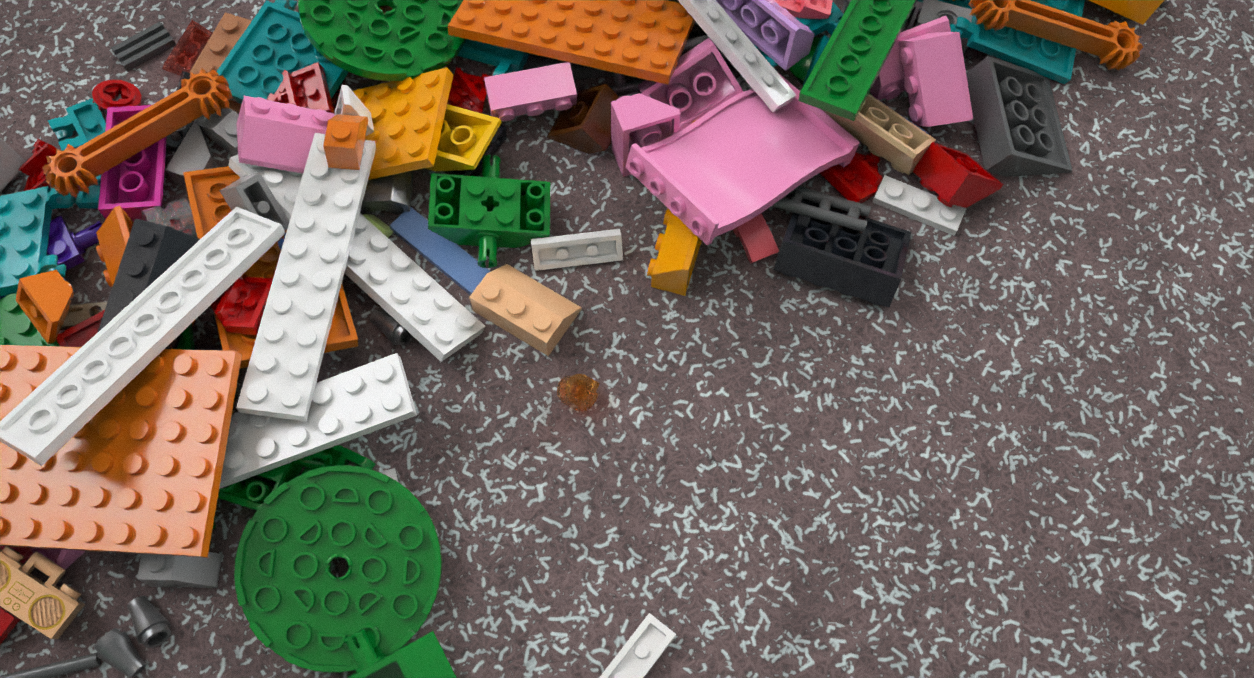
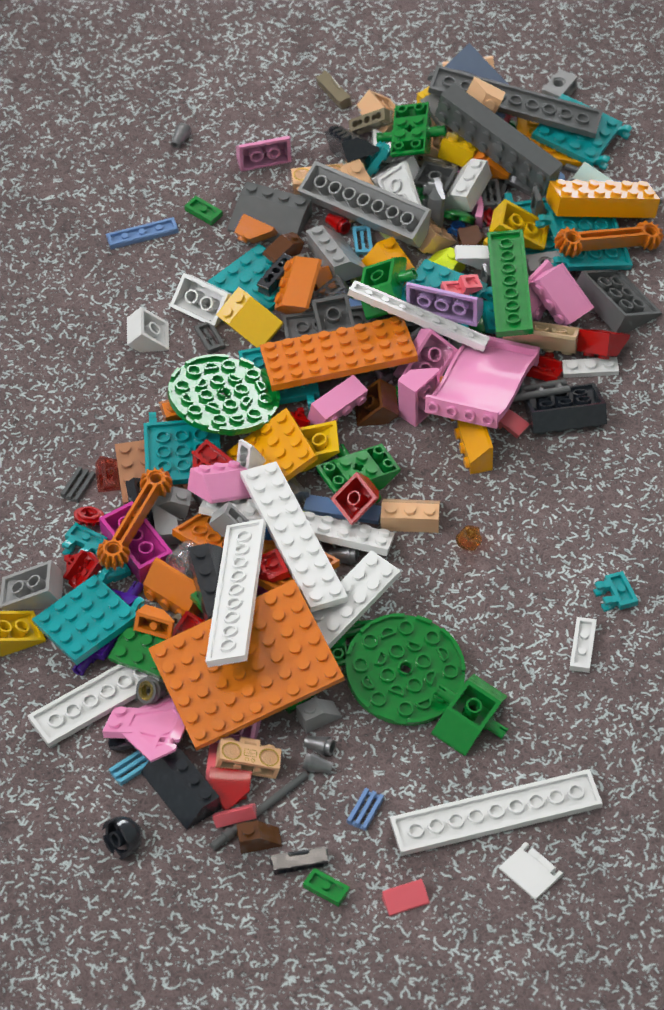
camera: 25 degrees left, 15 degrees down
(345, 141) = (267, 464): orange slope -> none
(451, 250) = (355, 497): none -> red slope
(577, 249) = (418, 472): white plate -> none
(745, 599) = (620, 589): none -> teal plate

